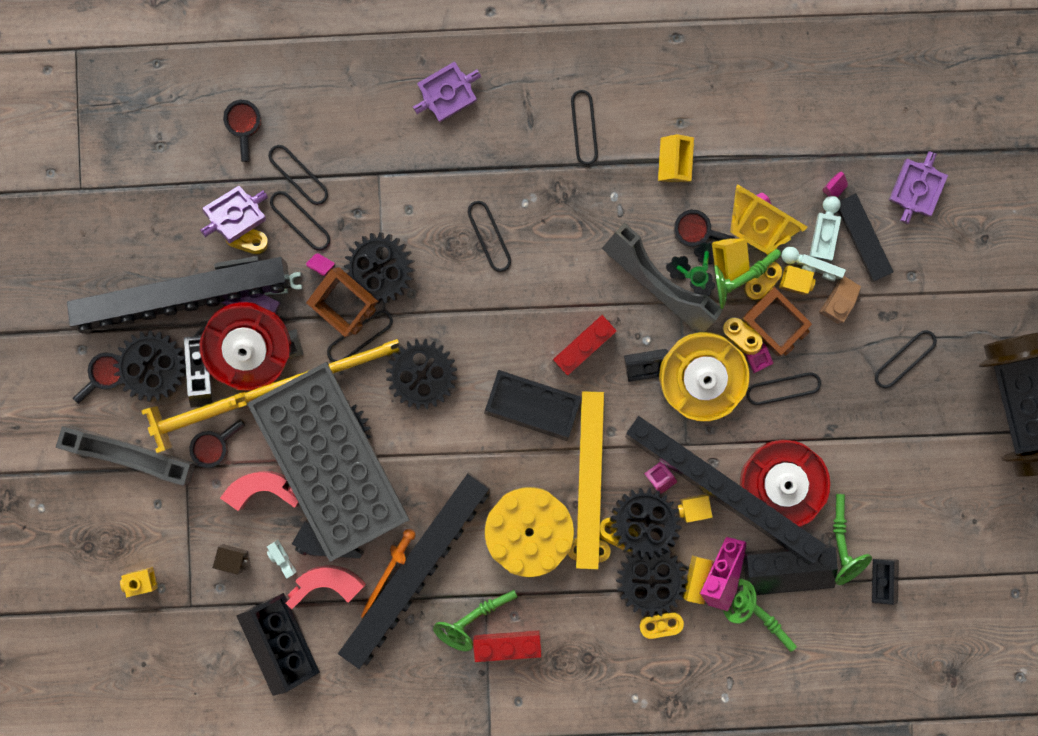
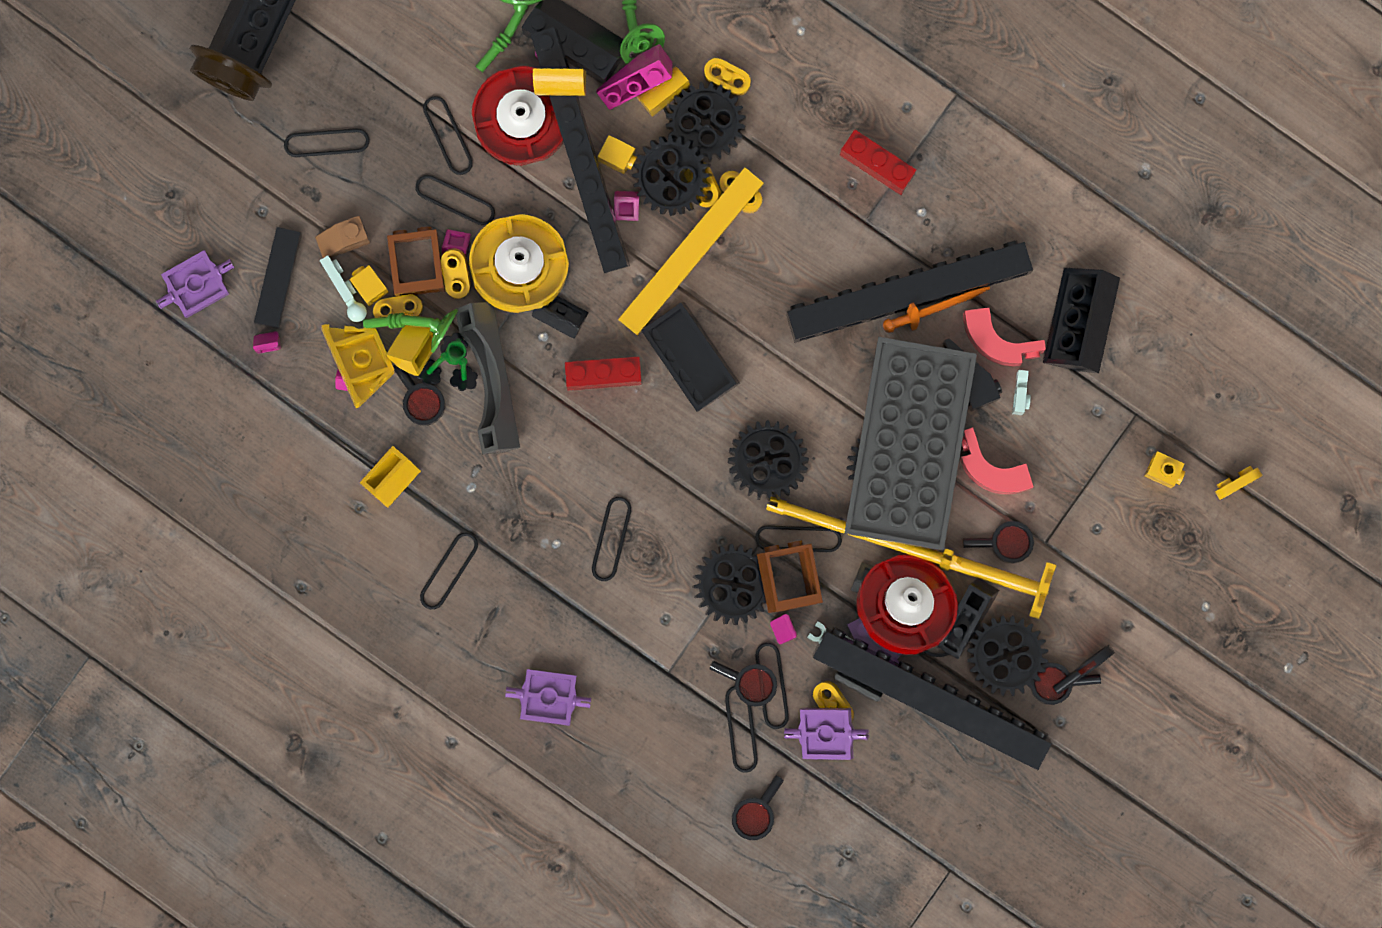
camera: 145 degrees left, 5 degrees down
(84, 605) = (1246, 476): none -> yellow plate
(87, 401) = (1085, 668): none -> black piece
(127, 454) = (1089, 593): dark grey arch -> none
(231, 559) = (1066, 426): dark brown brick -> none
(312, 211) = (753, 684): none -> piece
(456, 632) = (913, 208): bright green dish -> none
(535, 552) = (784, 224): yellow piece -> none
(778, 526) = (559, 82): none -> yellow brick
(820, 438) = (457, 132): none -> black piece
(826, 230) = (306, 309): light aqua plate -> none

